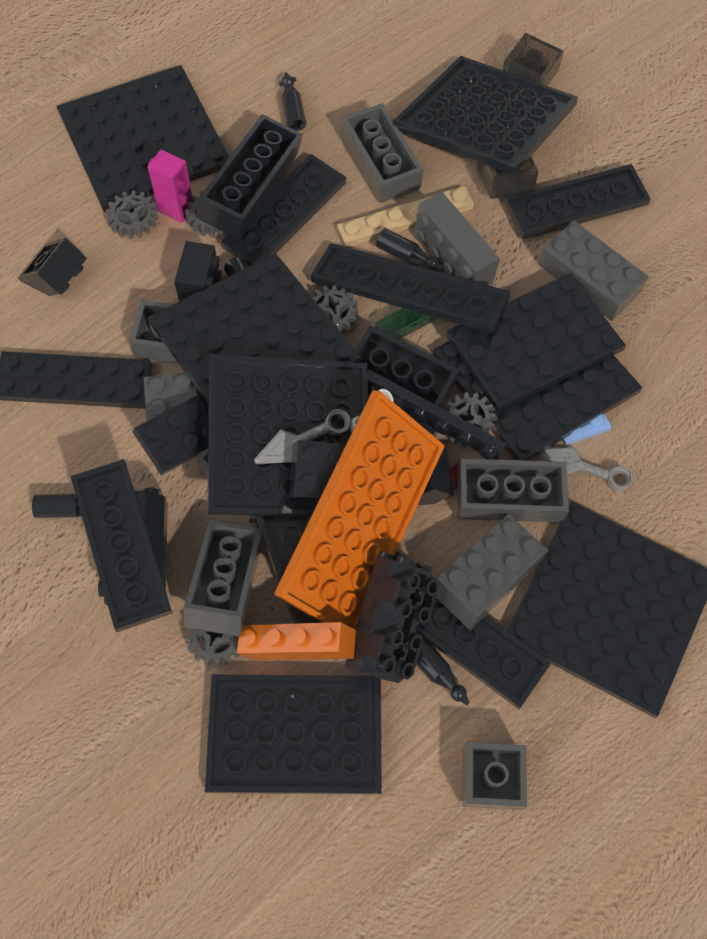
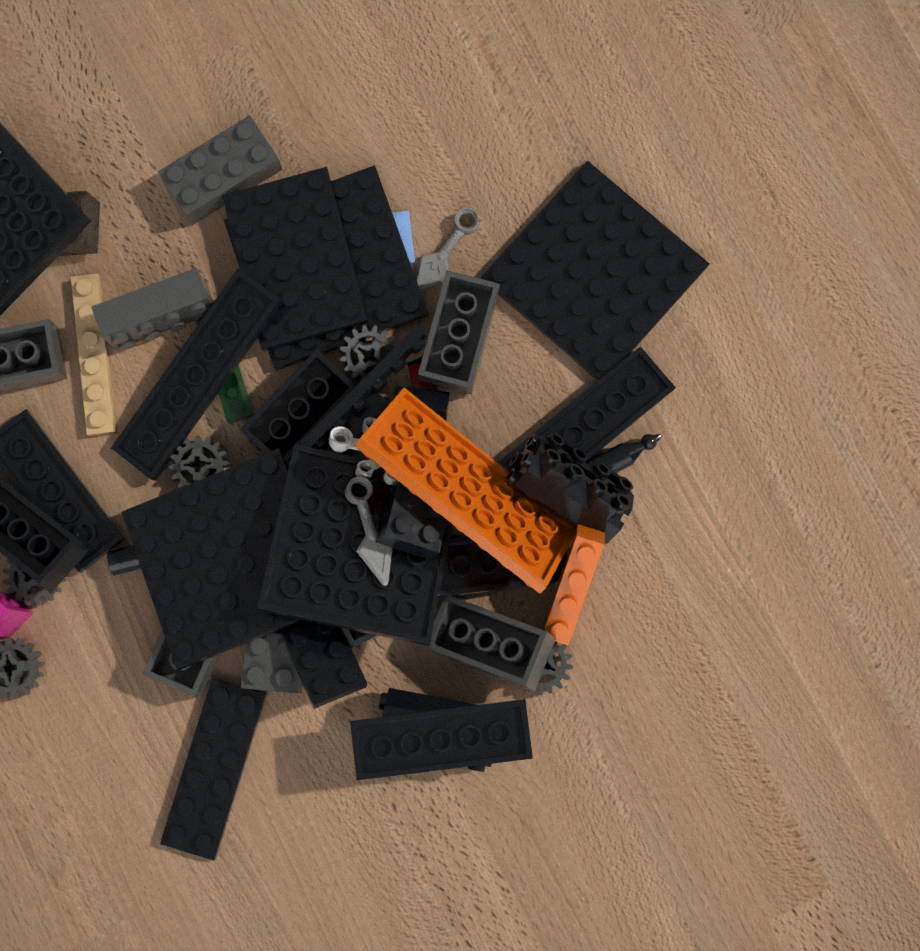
camera: 70 degrees left, 15 degrees up
(53, 267) = (63, 771): black slope -> none
(55, 506) = (364, 804): black wheel -> none
(197, 269) = (123, 606): black brick -> none
(294, 735) = (653, 607): black plate -> none
(405, 249) = (141, 365): black wheel -> none
(489, 571) = (540, 378): dark grey brick -> none
(494, 776) = (734, 430): dark grey brick -> none
(577, 200) = (124, 158): black plate -> none

